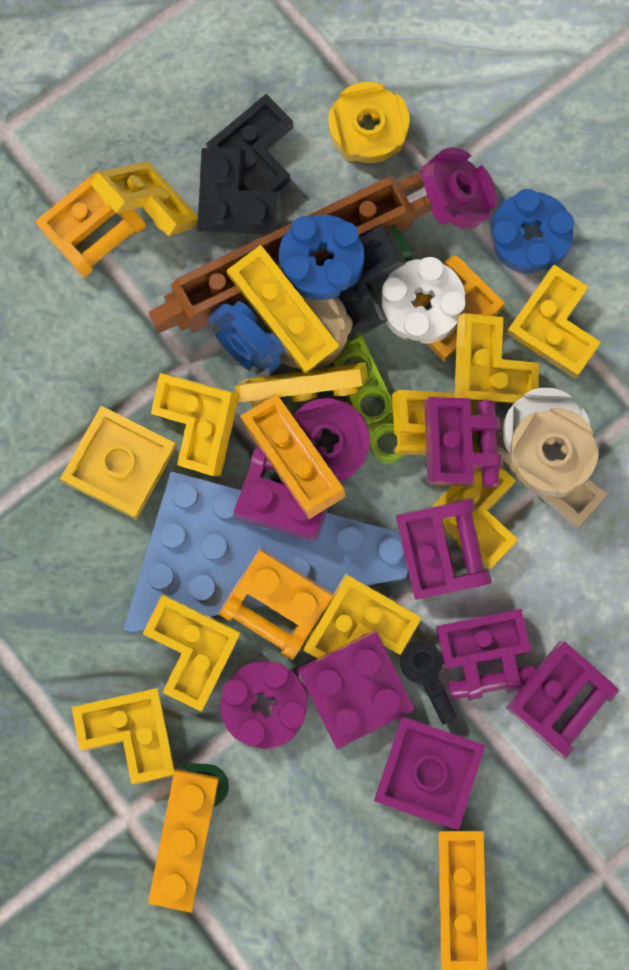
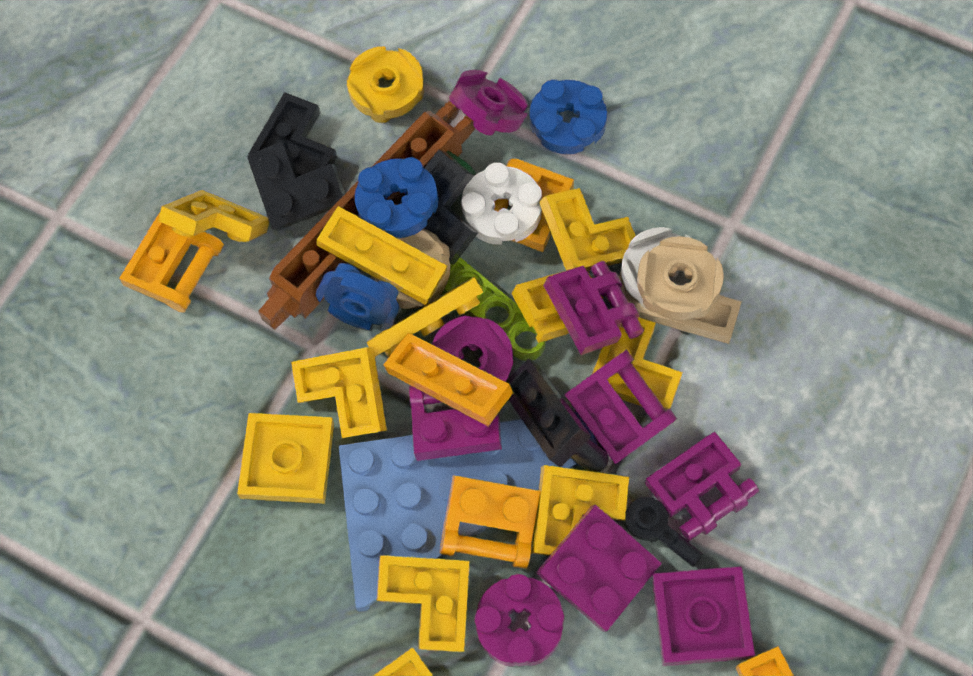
camera: 20 degrees left, 10 degrees down
(372, 533) = (552, 419): none -> black piece
(545, 327) = (619, 188): yellow plate -> none
(553, 689) = (777, 492): magenta plate -> none

